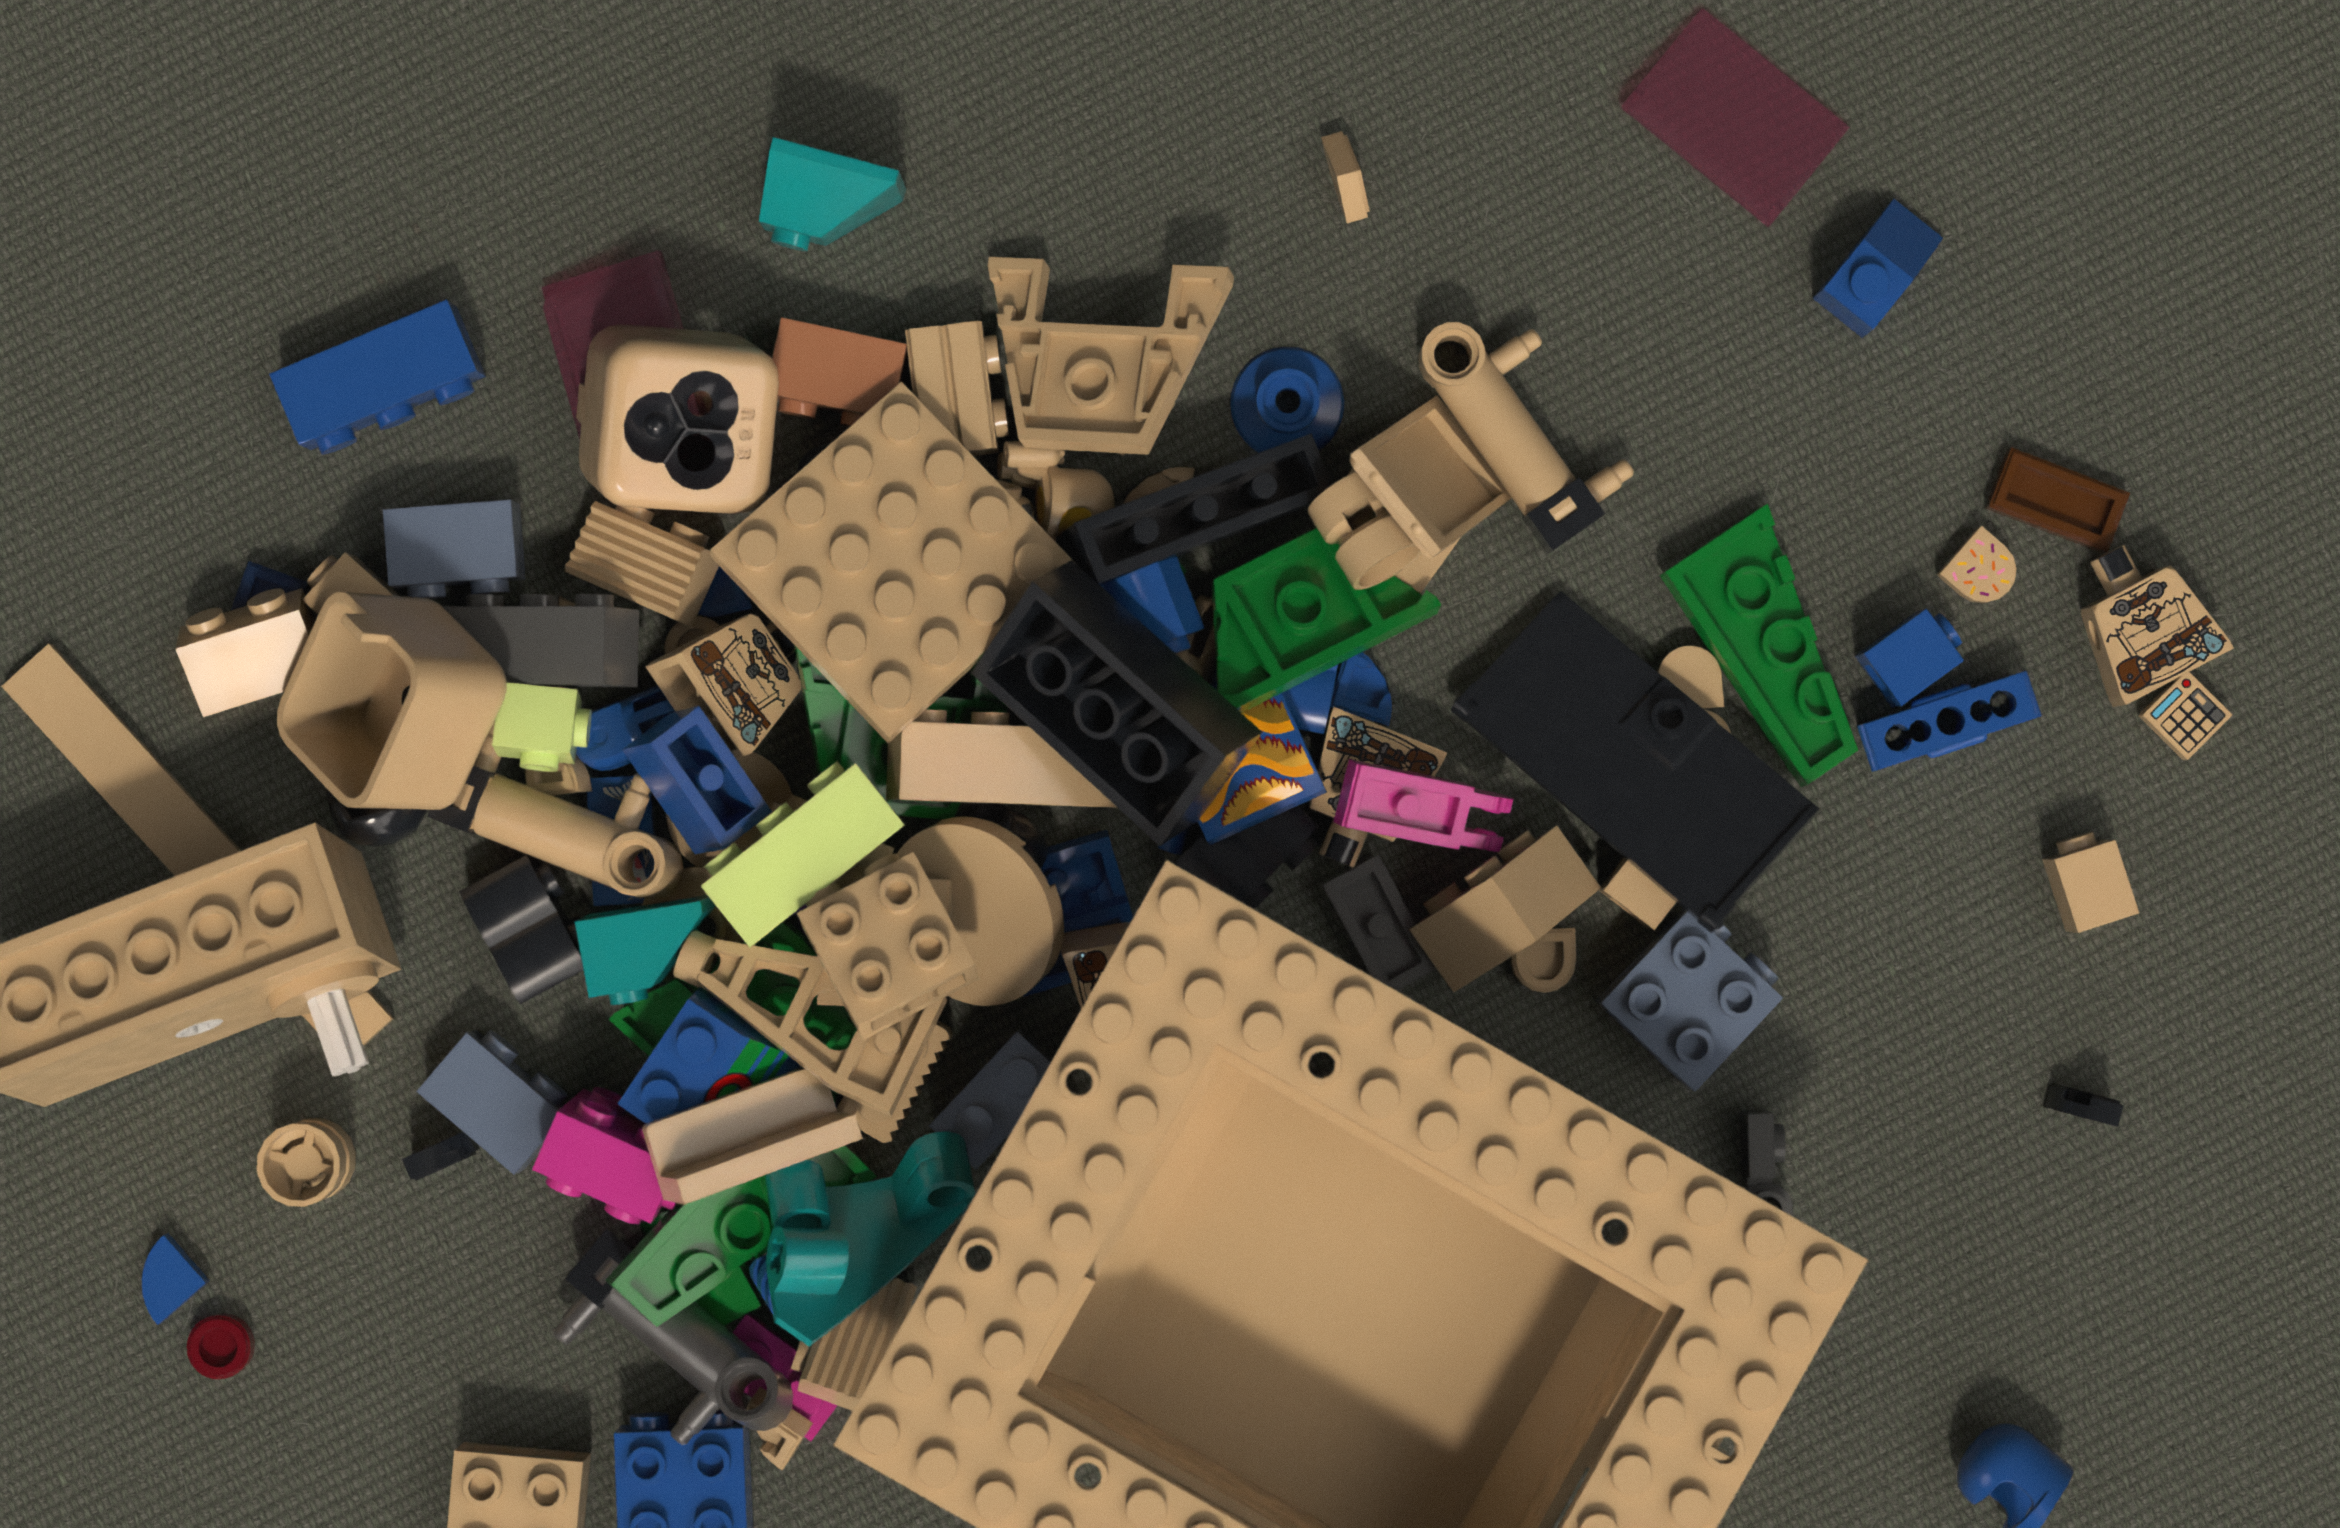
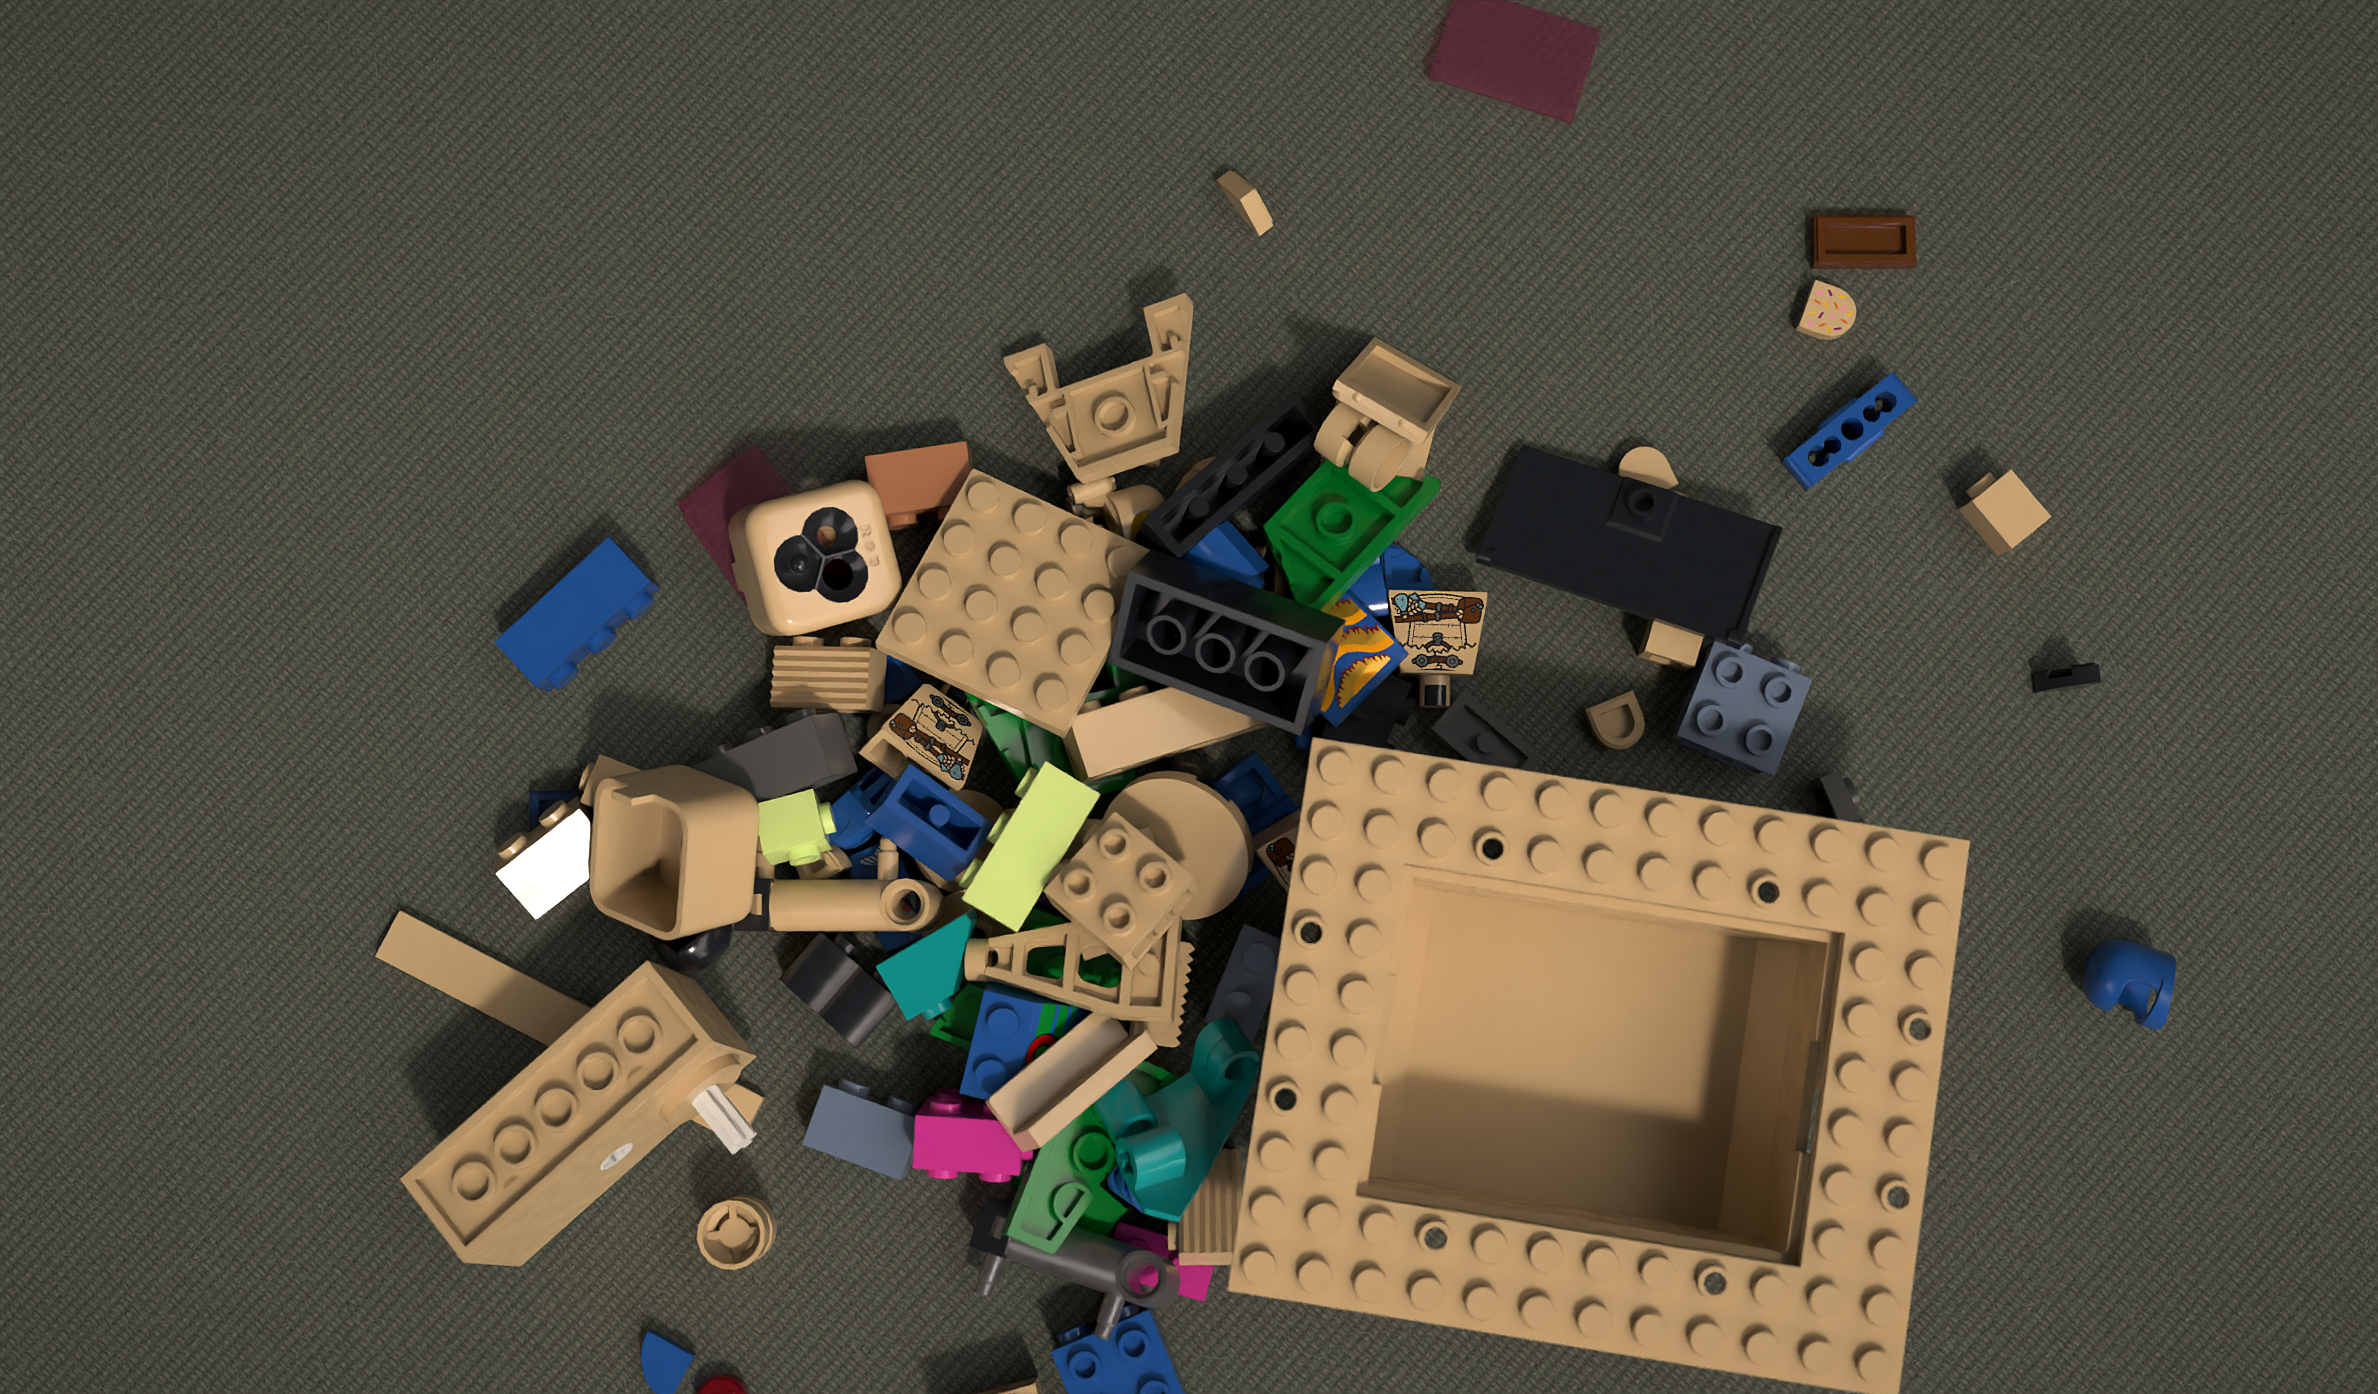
camera: 15 degrees left, 5 degrees down
(440, 1156) = (838, 1188): black tile -> none
(454, 547) = (681, 720): sand blue brick -> none
(782, 1441) = (1183, 1308): tan tile -> none
(822, 194) = (863, 353): teal slope -> none
(953, 382) = (1009, 452): tan brick -> none
(1278, 371) = (1239, 377): blue piece -> none
(1416, 807) = (1479, 639): dark pink hinge -> none
(1503, 906) = (1576, 692): tan brick -> none
(1510, 439) = (1440, 345): tan piece -> none
(1753, 624) = (1673, 413): green wing -> none
(1878, 269) = (1664, 124): blue slope -> none
(1911, 656) = (1802, 394): blue brick -> none
(2146, 628) = (1968, 308): torso -> none
(2185, 715) = (2021, 362): tan tile -> none

